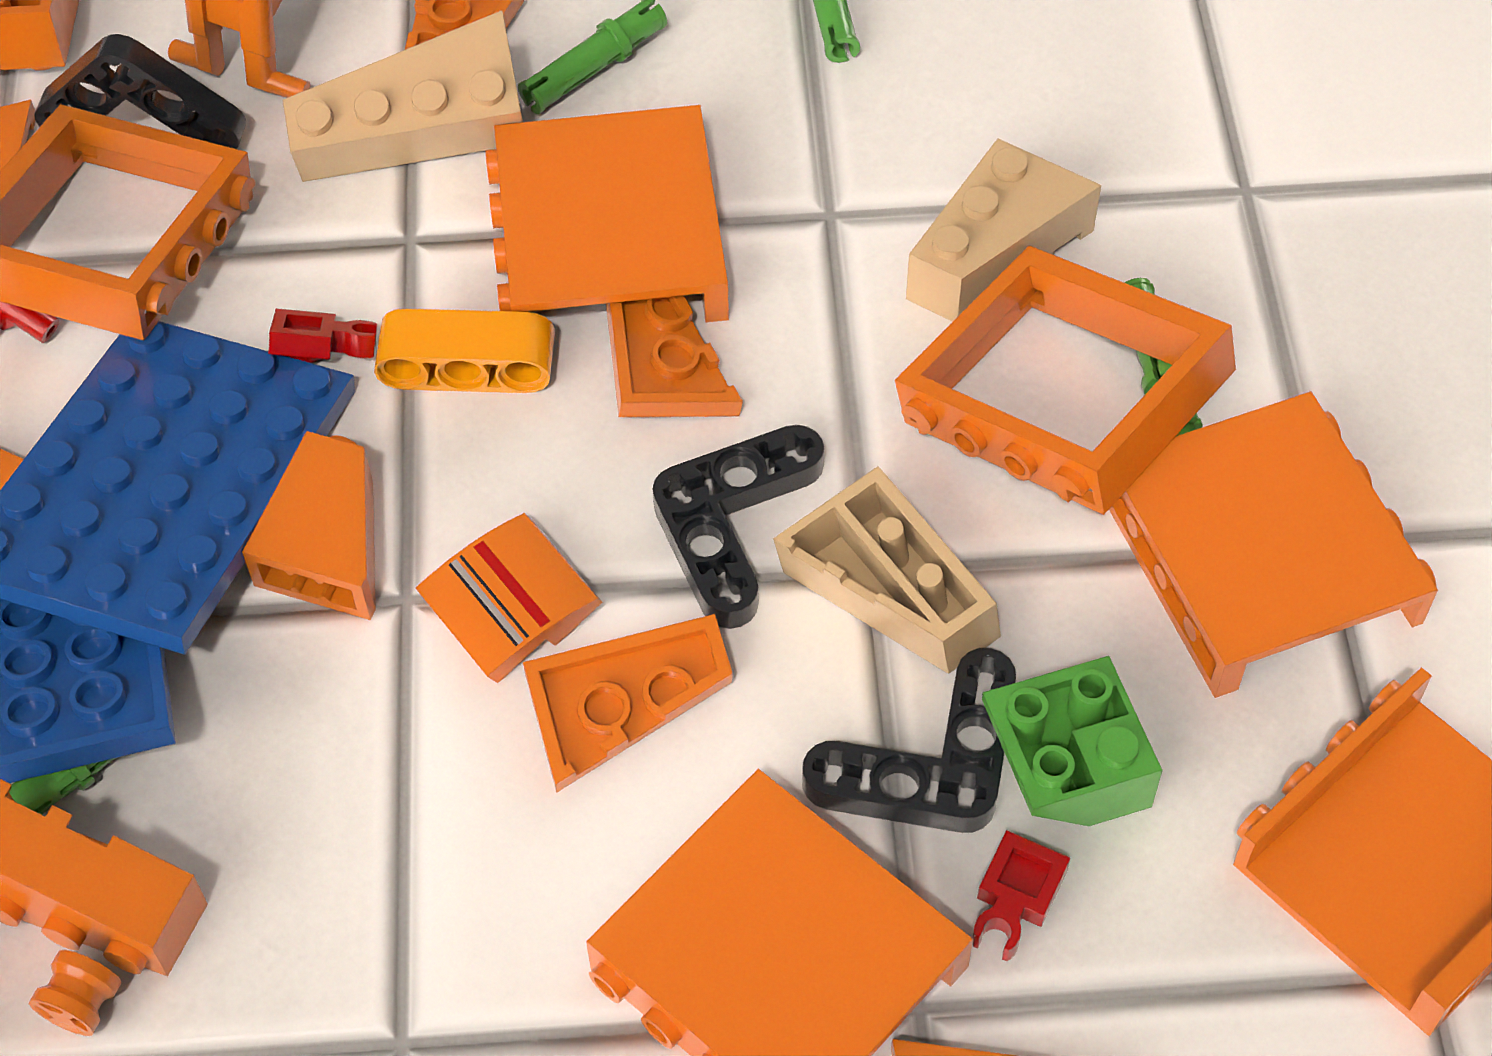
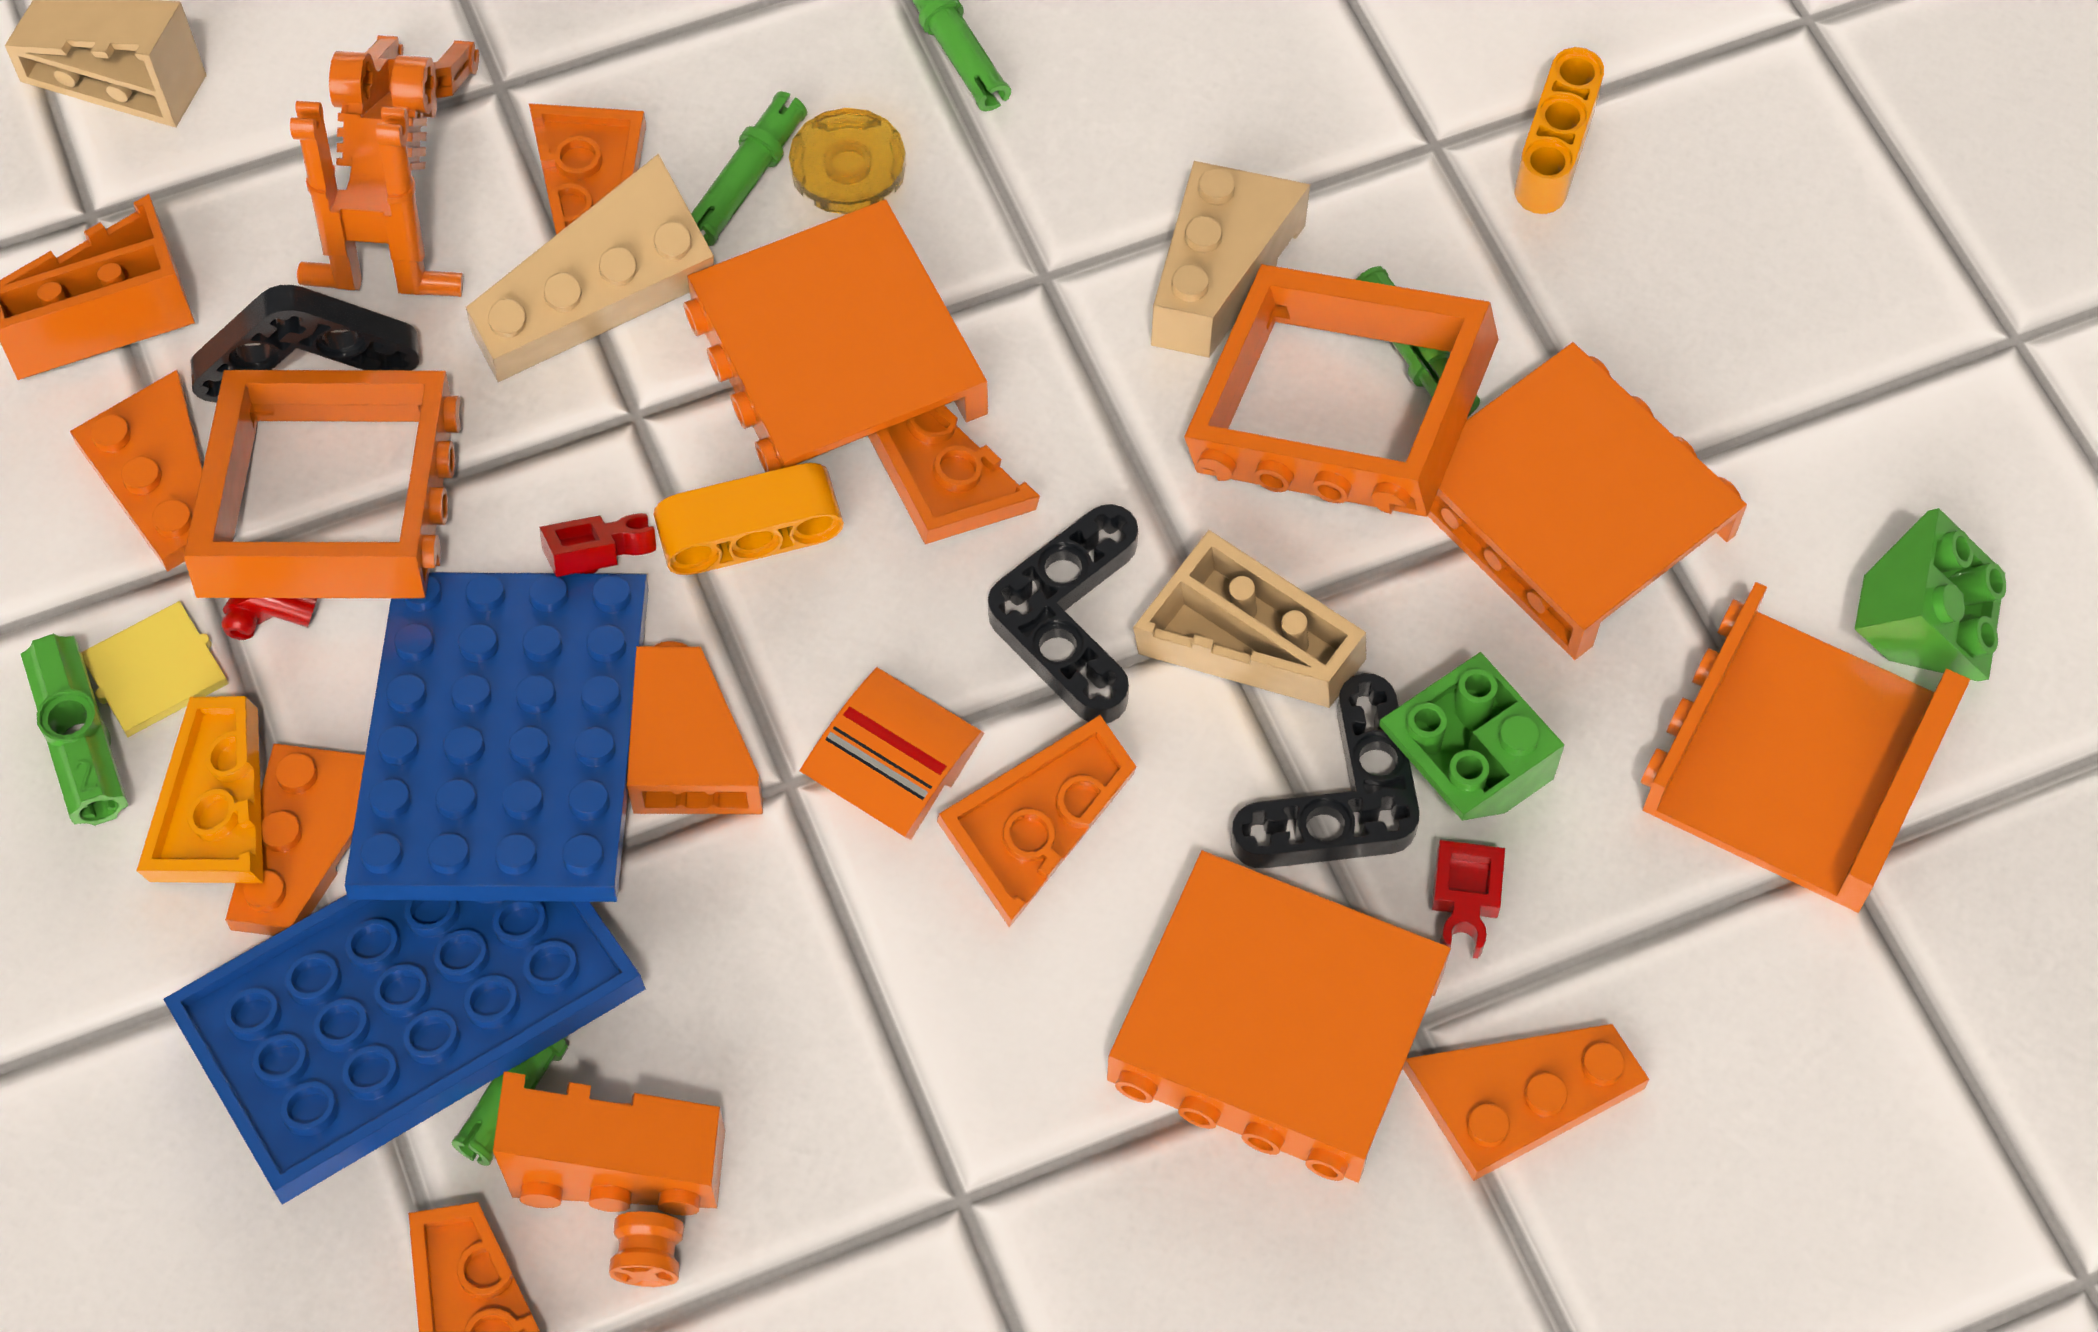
camera: 20 degrees left, 5 degrees up
(688, 68) = (847, 159): none -> clear yellow tile
(1369, 202) = (1559, 130): none -> light orange beam

